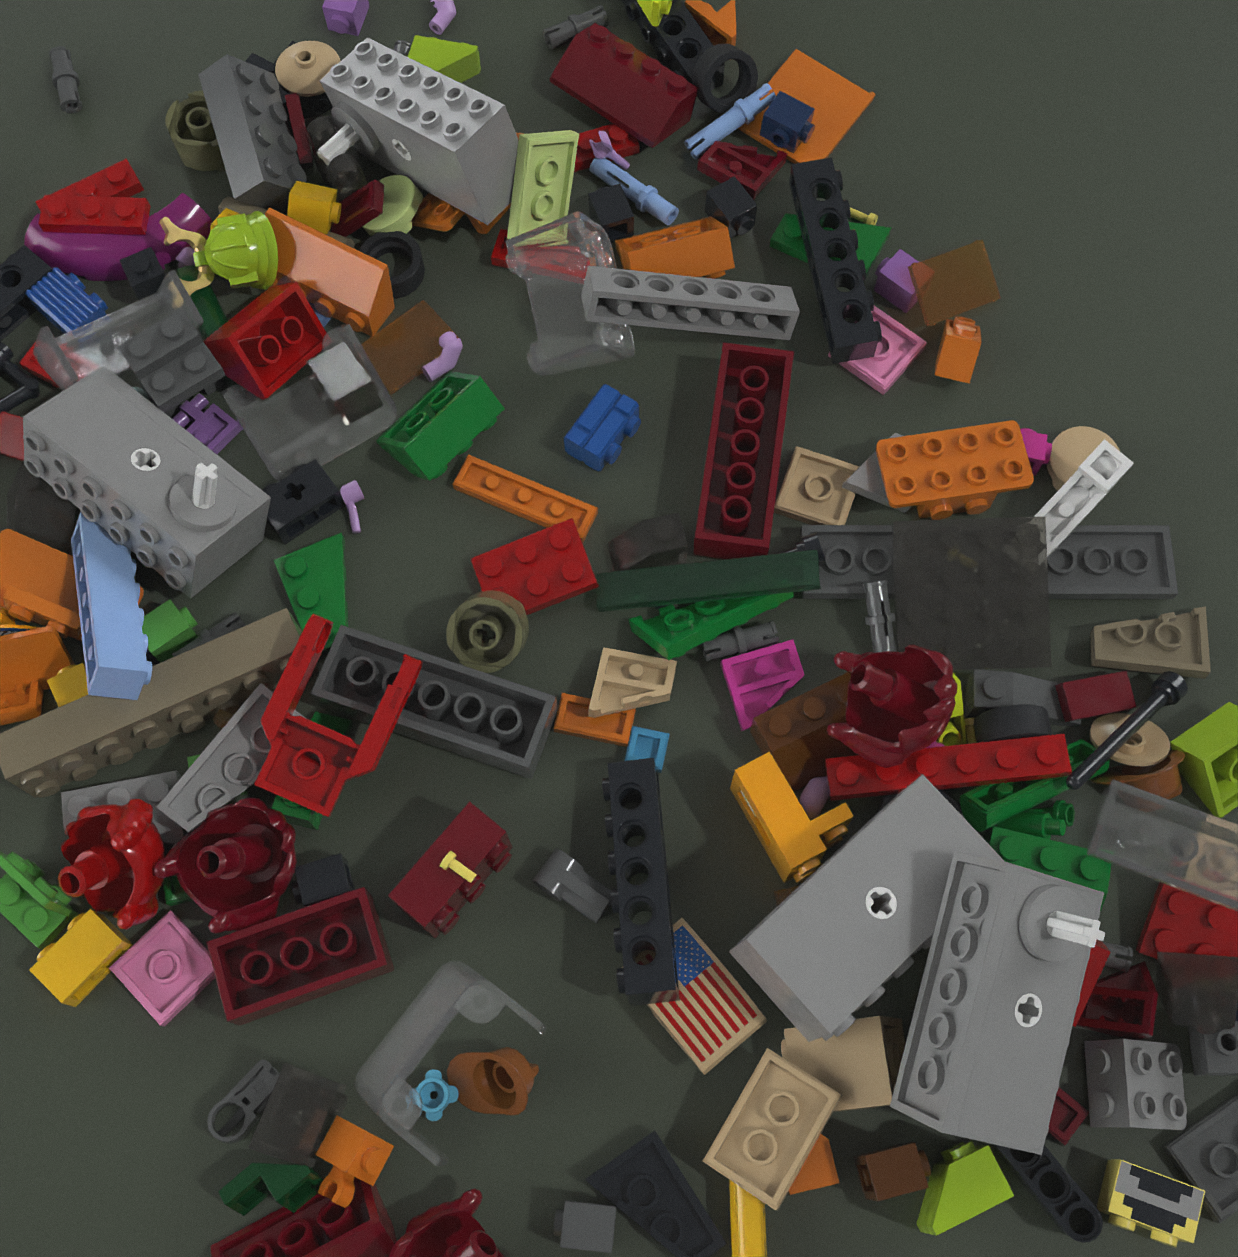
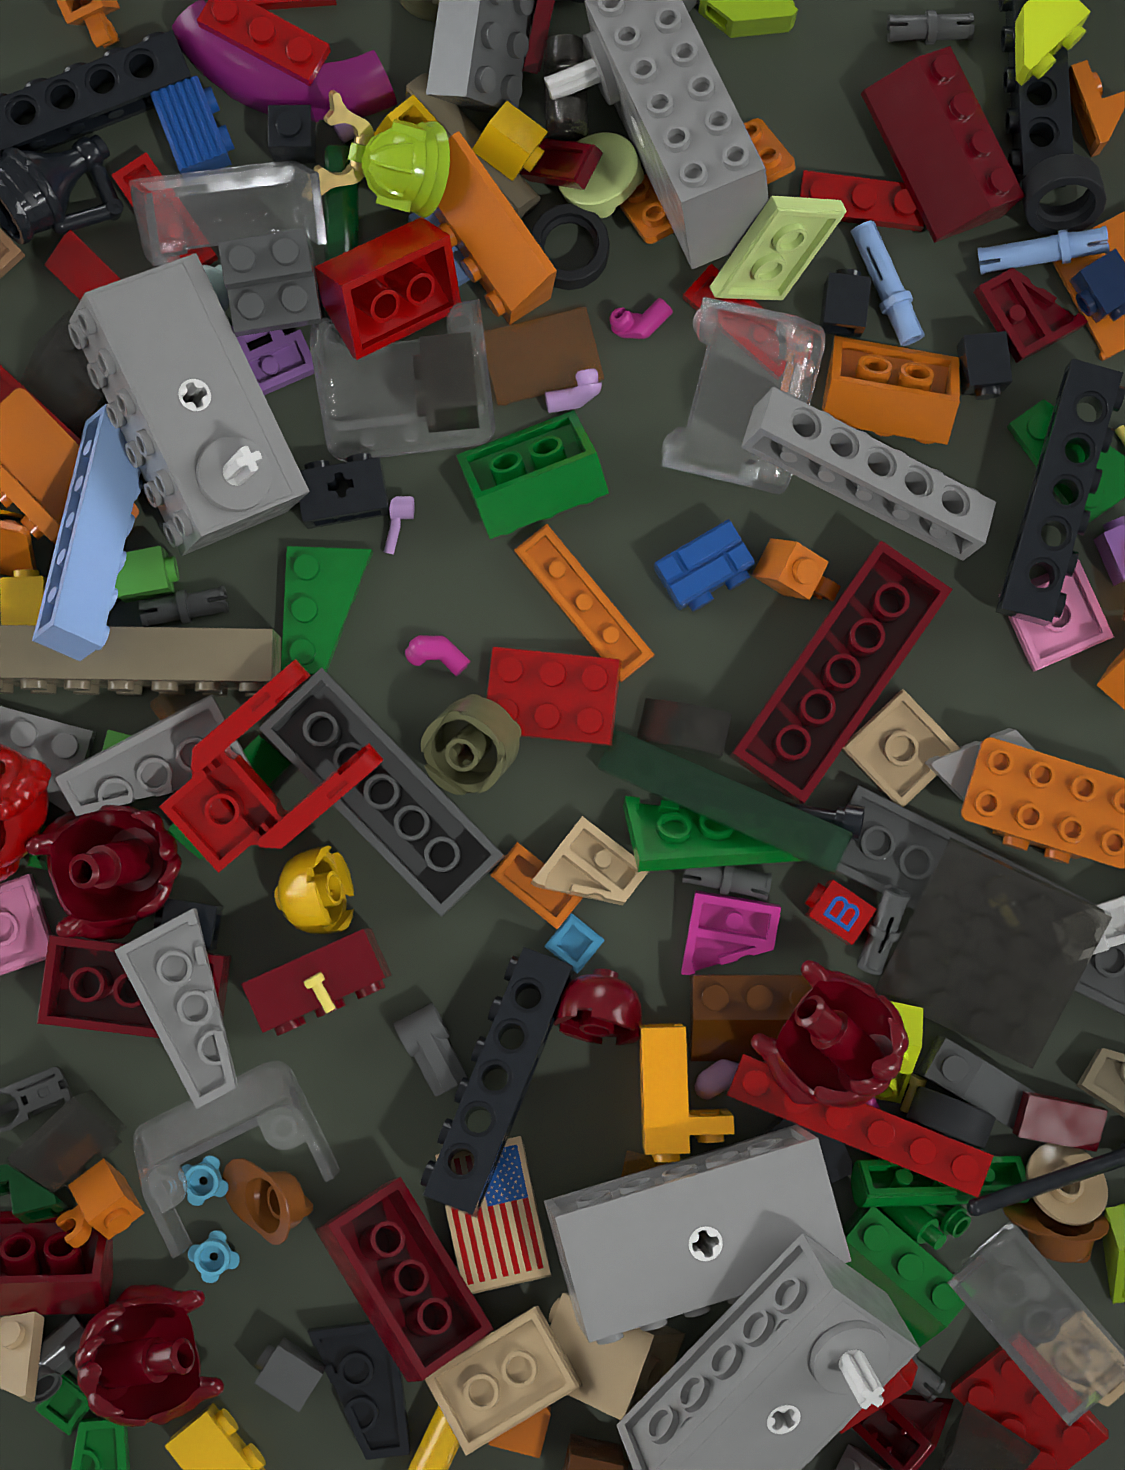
camera: 25 degrees right, 15 degrees up
(341, 934) = (180, 998): none -> light grey wing
(416, 804) = (314, 891): none -> yellow cylinder
(429, 580) = (436, 648): none -> dark pink arm
(460, 1160) = (201, 1253): none -> medium azure plate
(467, 295) = (639, 325): none -> dark pink arm
(604, 149) = (877, 218): lavender hand -> none
(645, 1086) = (404, 1280): none -> dark red brick
(670, 398) = (794, 571): none -> orange brick
(694, 785) = (598, 1008): none -> dark red cylinder
(838, 623) = (838, 911): none -> red brick

